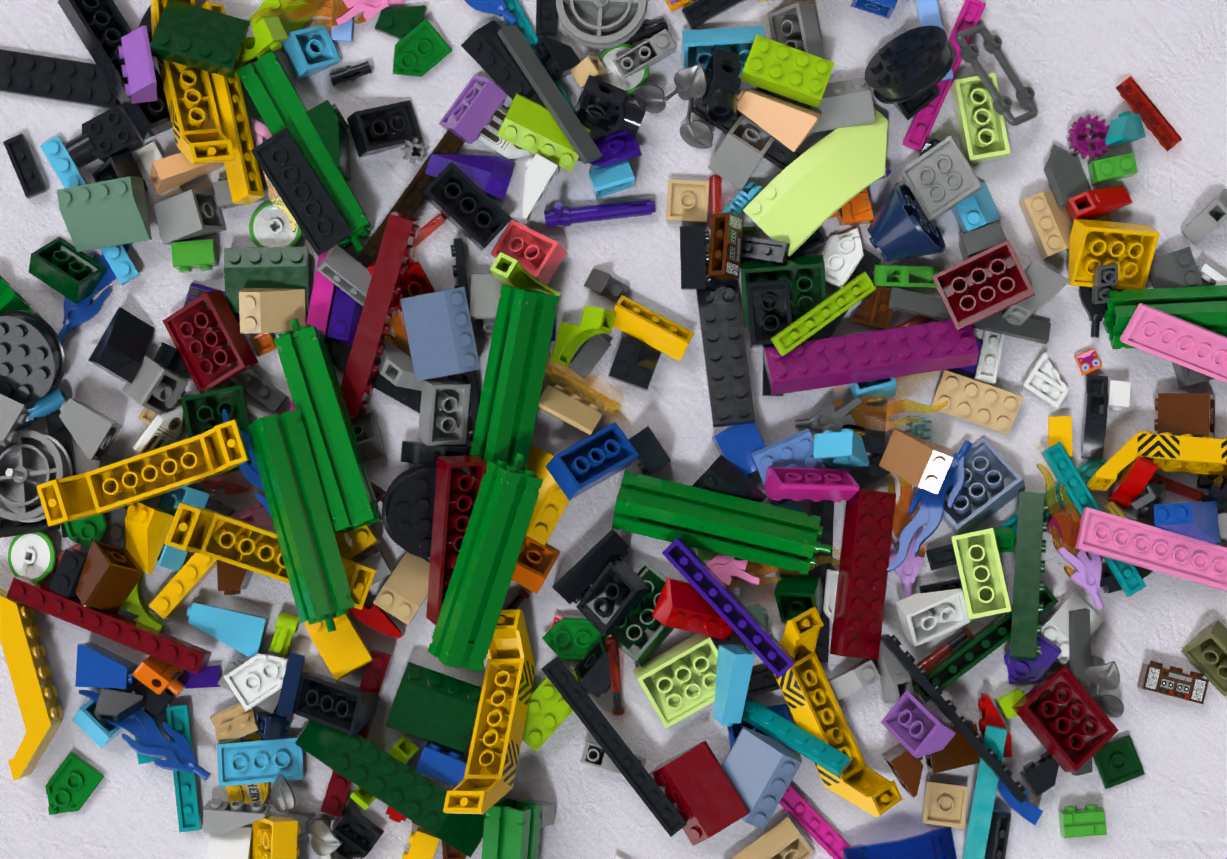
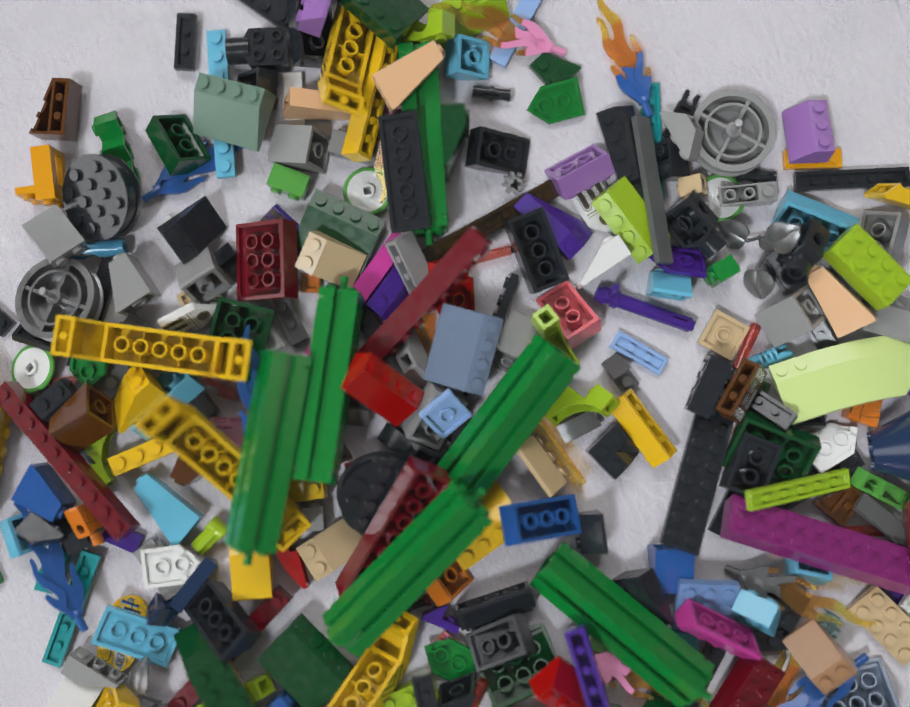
camera: 30 degrees right, 0 degrees up
(234, 723) = (130, 593): tan bracket -> none
(258, 99) = (405, 75): none -> light nougat slope
(380, 408) = (381, 388): none -> red slope
(453, 404) = (445, 414): none -> light blue tile
(539, 603) = (436, 617): none -> dark purple slope
(555, 25) = (684, 132): none -> light grey slope
(615, 257) = (638, 352): none -> light blue tile
(654, 141) = (721, 271): none -> green brick

